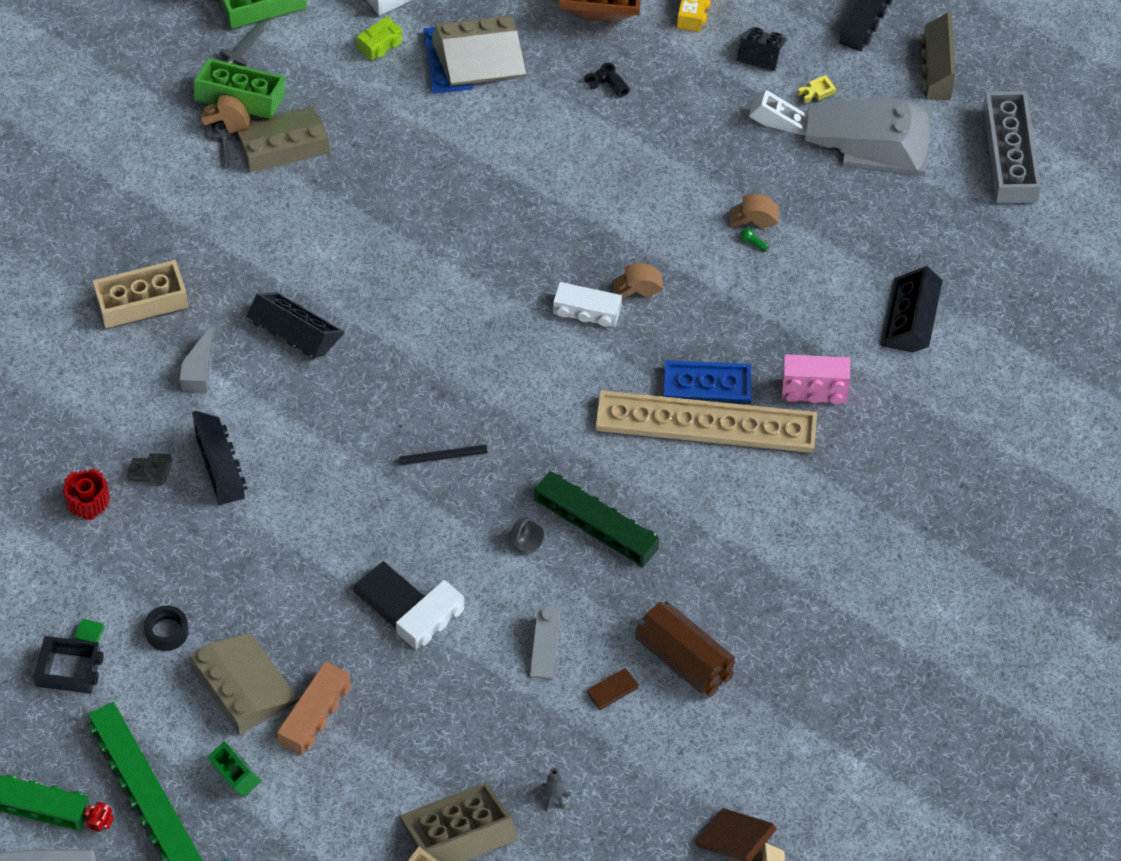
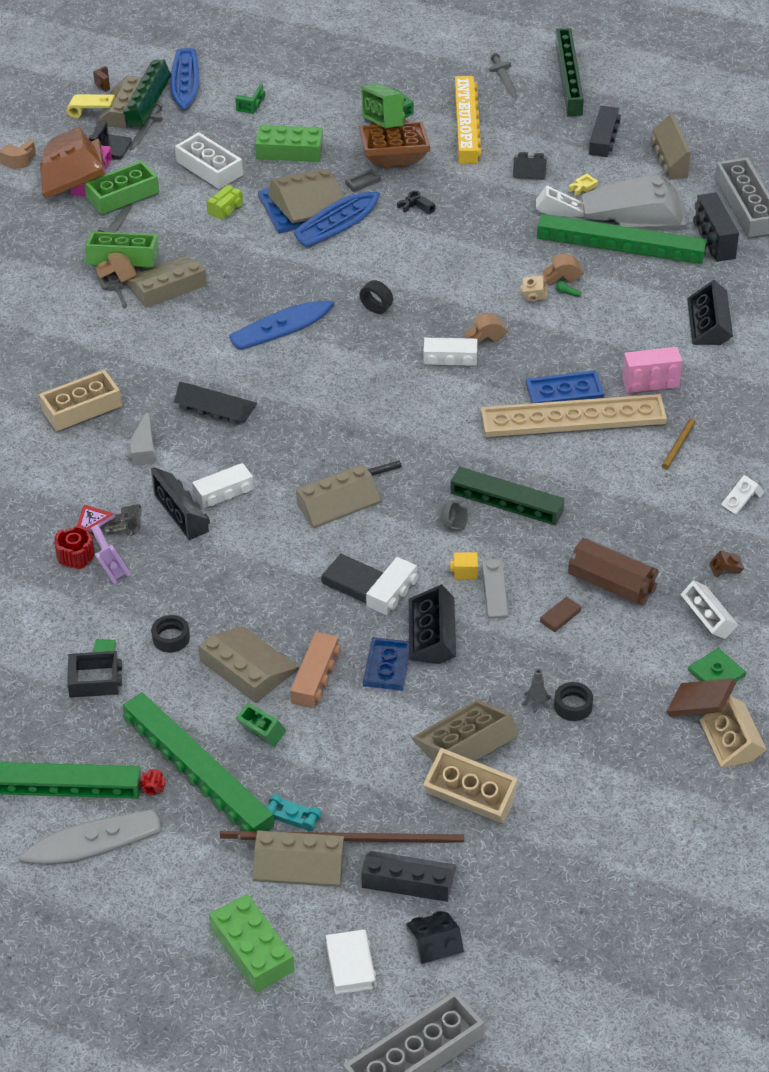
camera: 10 degrees left, 10 degrees down
(113, 461) = (109, 558): none -> lavender piece
(274, 442) = (223, 485): none -> white brick
(398, 714) = (387, 664): none -> clear blue tile
(400, 225) = (280, 324): none -> blue piece
(401, 481) = (337, 496): none -> dark tan slope
(460, 678) = (432, 626): none -> black slope
(506, 85) = (336, 218): none -> blue piece
(519, 212) = (383, 293): none -> black tyre
(520, 604) = (464, 565): none -> yellow brick
(554, 33) = (363, 180): none -> dark grey tile
(591, 791) = (573, 689): none -> black tyre
(712, 233) = (534, 288): none -> tan brick
(769, 798) = (716, 666): none -> green plate
(782, 720) = (709, 609): none -> white brick
(816, 487) = (679, 442): none -> pearl gold bar
(824, 659) = (726, 561): none -> reddish brown bracket
(839, 179) = (621, 238): none -> green brick
(870, 569) = (741, 493): none -> white bracket
(956, 185) = (716, 227): none -> black brick

